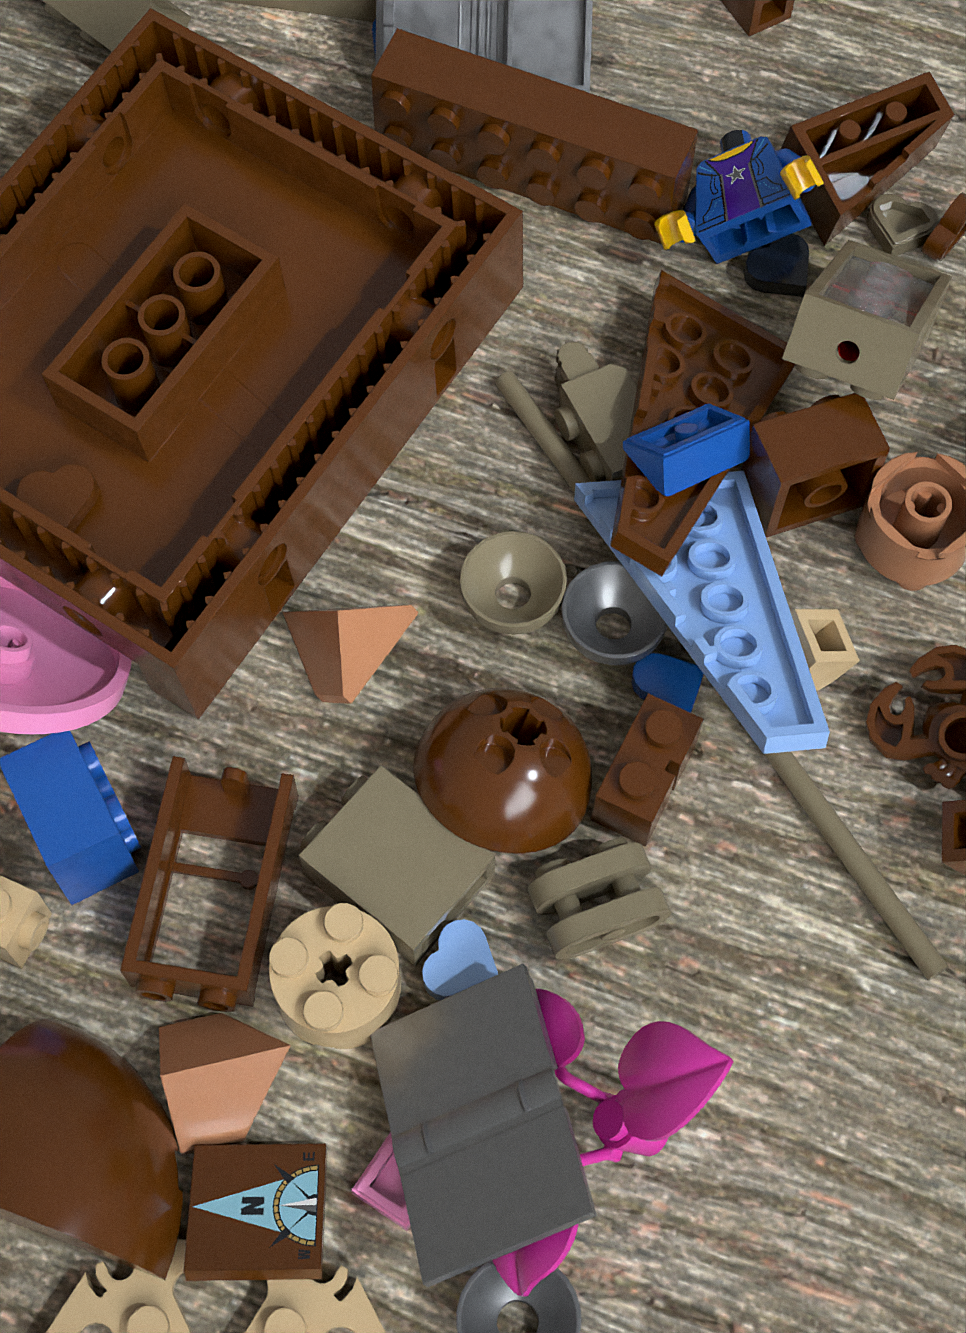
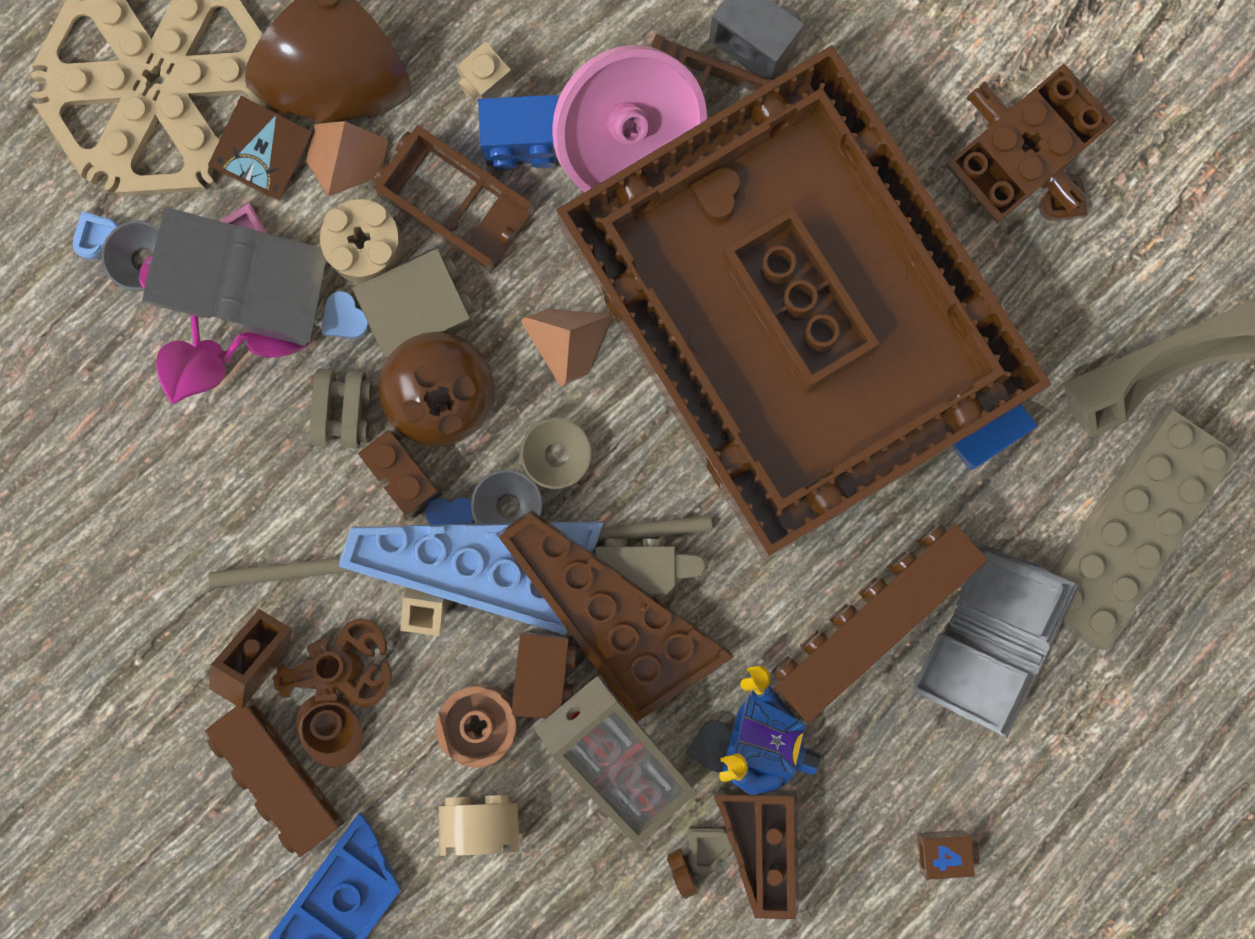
camera: 120 degrees right, 20 degrees up
(690, 448) = (578, 594): blue slope -> none

